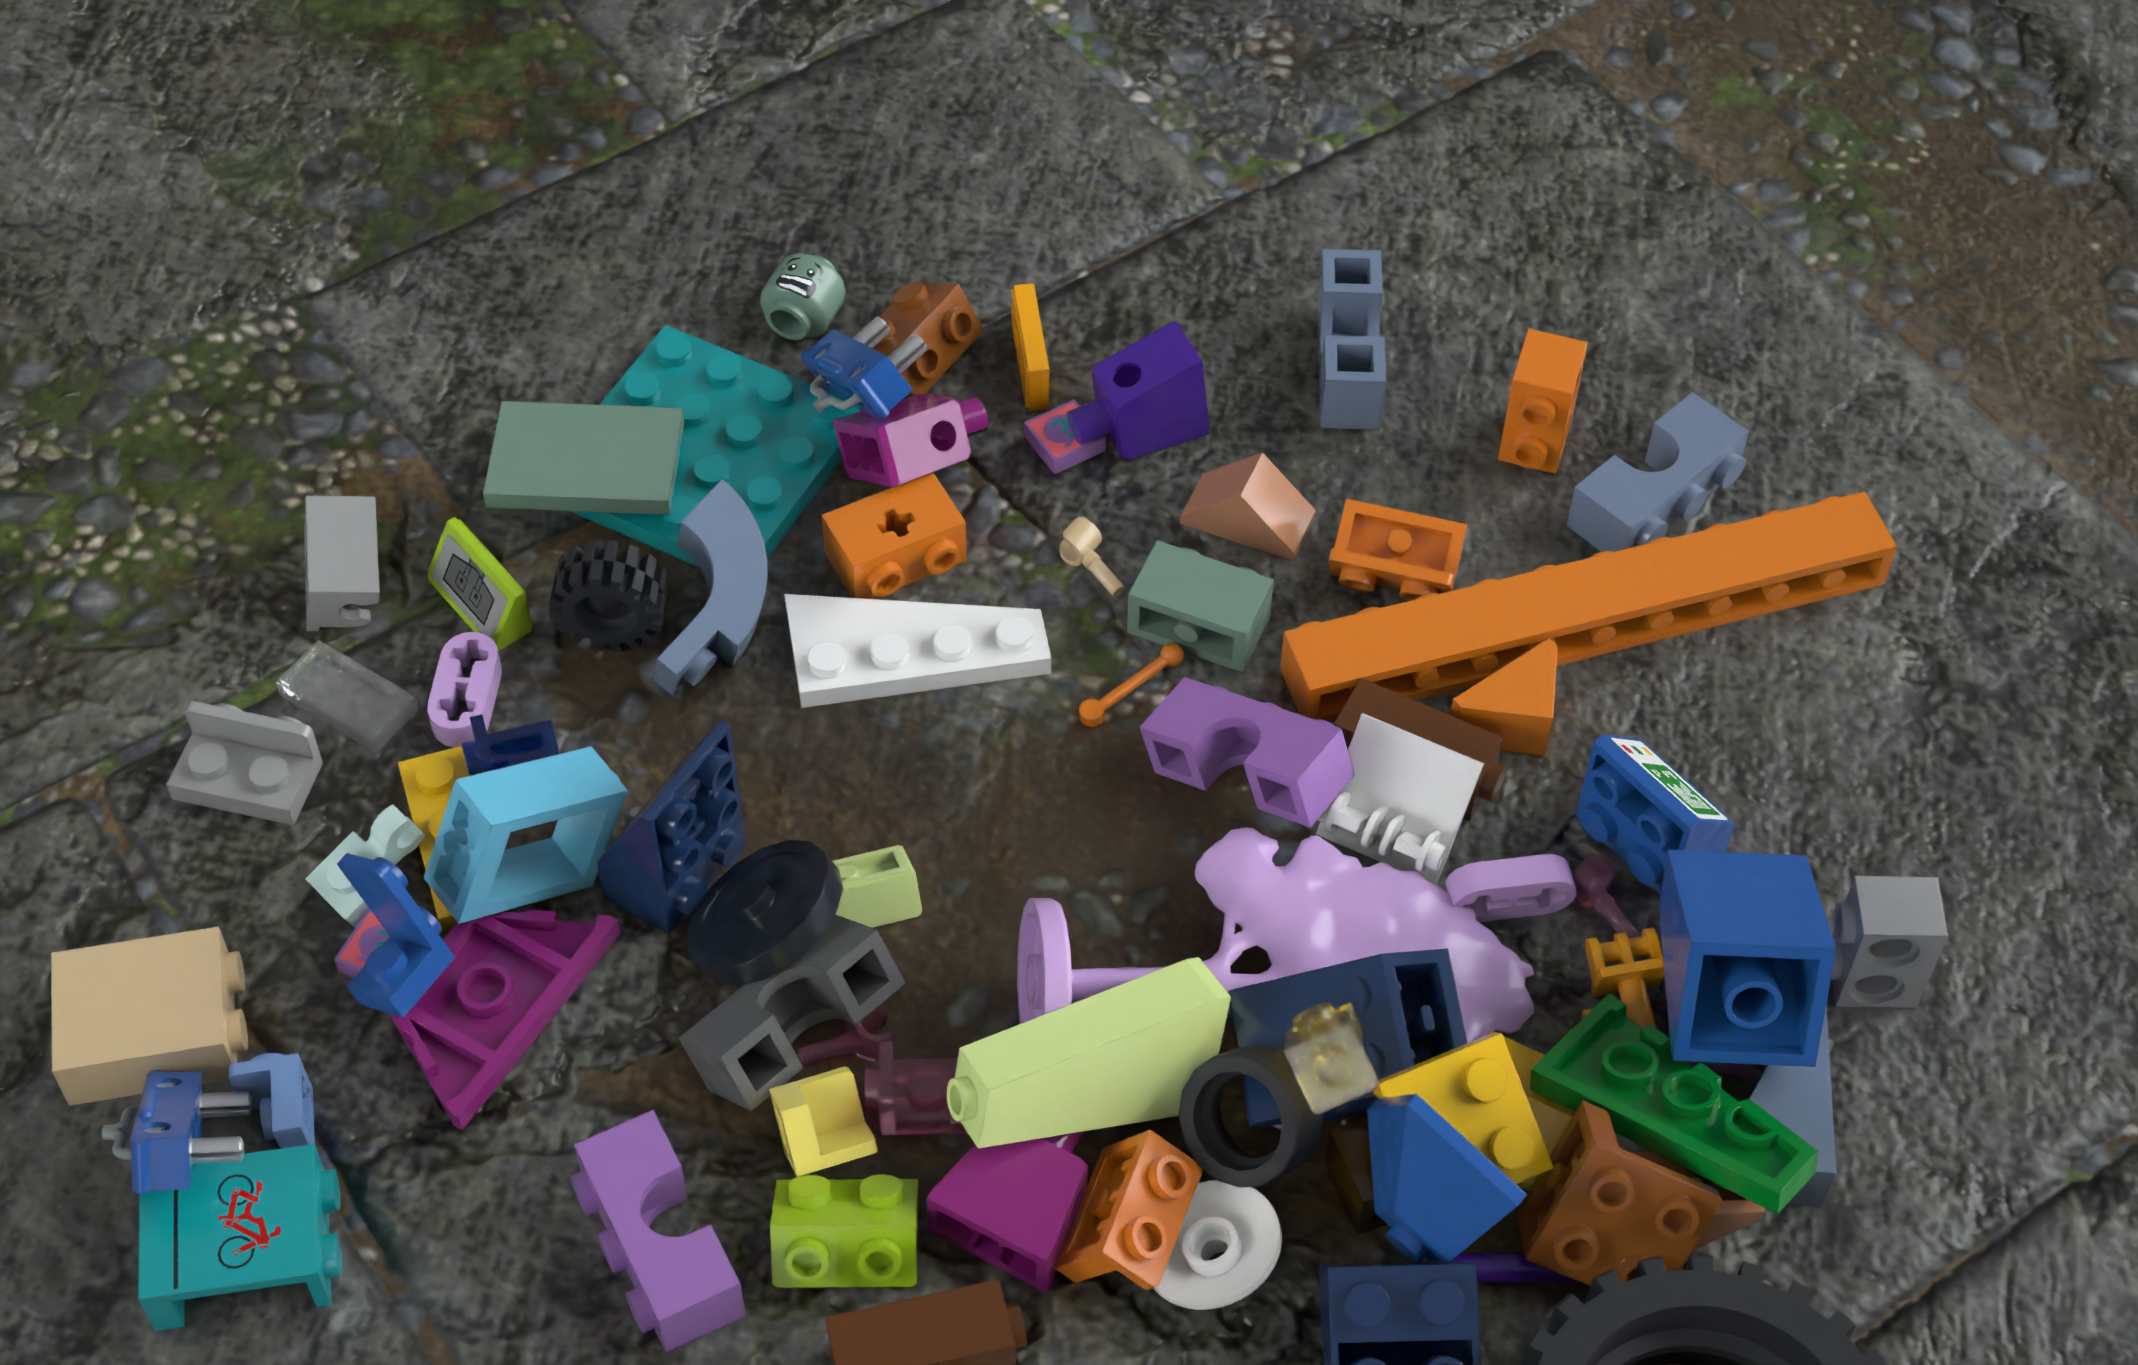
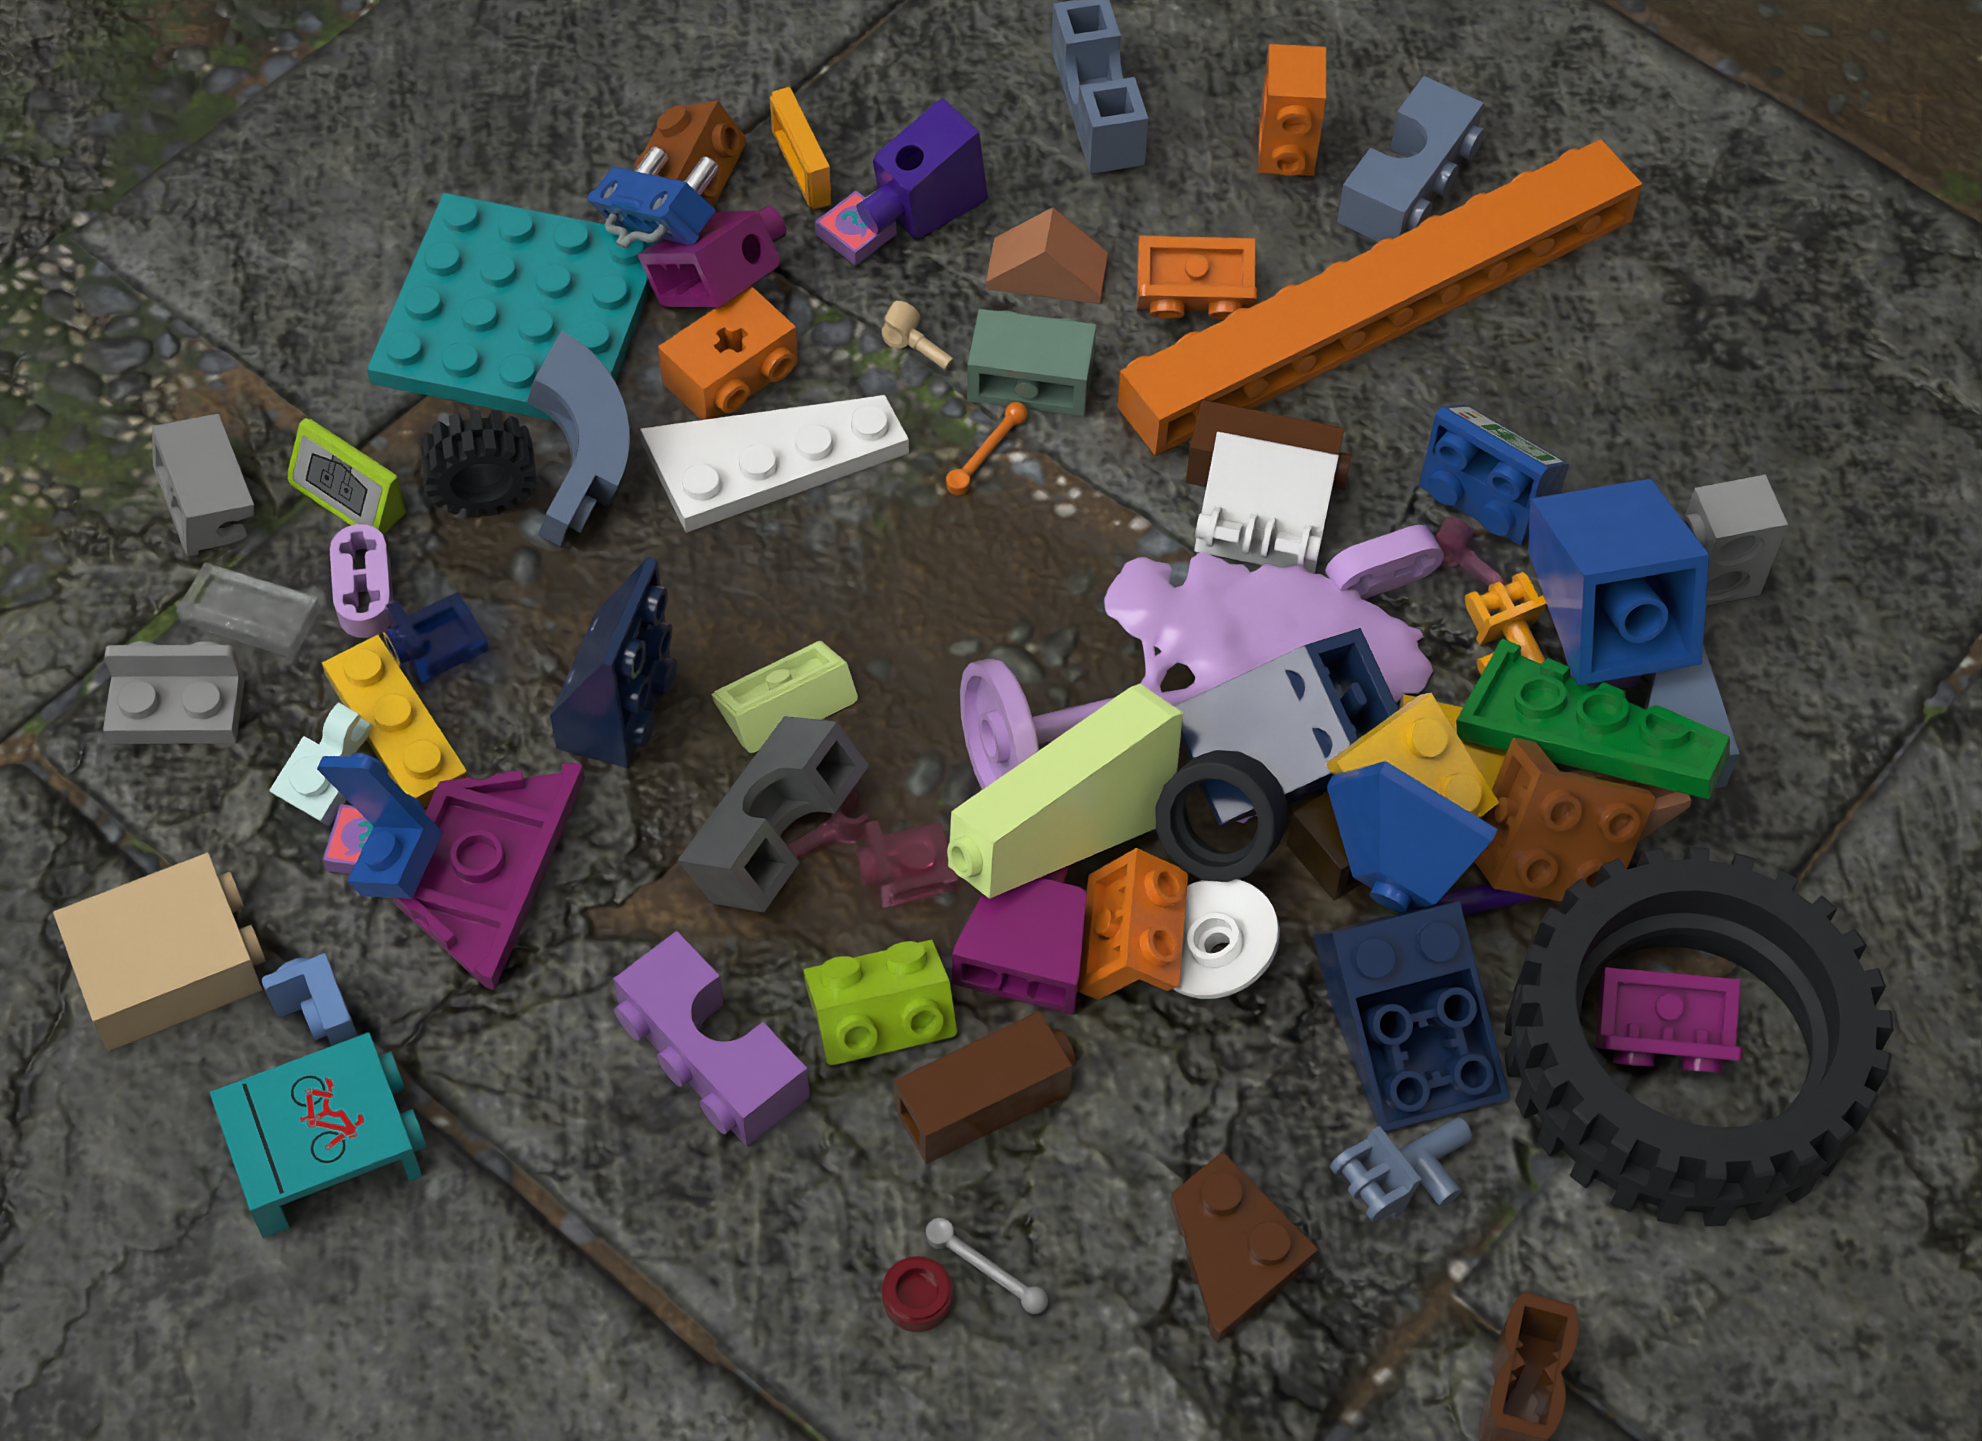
camera: 15 degrees left, 5 degrees up
(169, 1130) = (229, 1051): blue piece -> none
(469, 856) = (507, 658): medium azure window -> none
(584, 458) = (411, 336): sand green tile -> none
(764, 912) = (720, 729): black wheel -> none
(802, 296) = (567, 140): sand green head -> none
(822, 1121) = (830, 908): light yellow panel -> none
(1289, 759) = (1164, 485): medium lavender arch -> none
(1329, 1056) = (1286, 746): clear yellow bracket -> none
(1515, 701) = (1344, 392): orange slope -> none

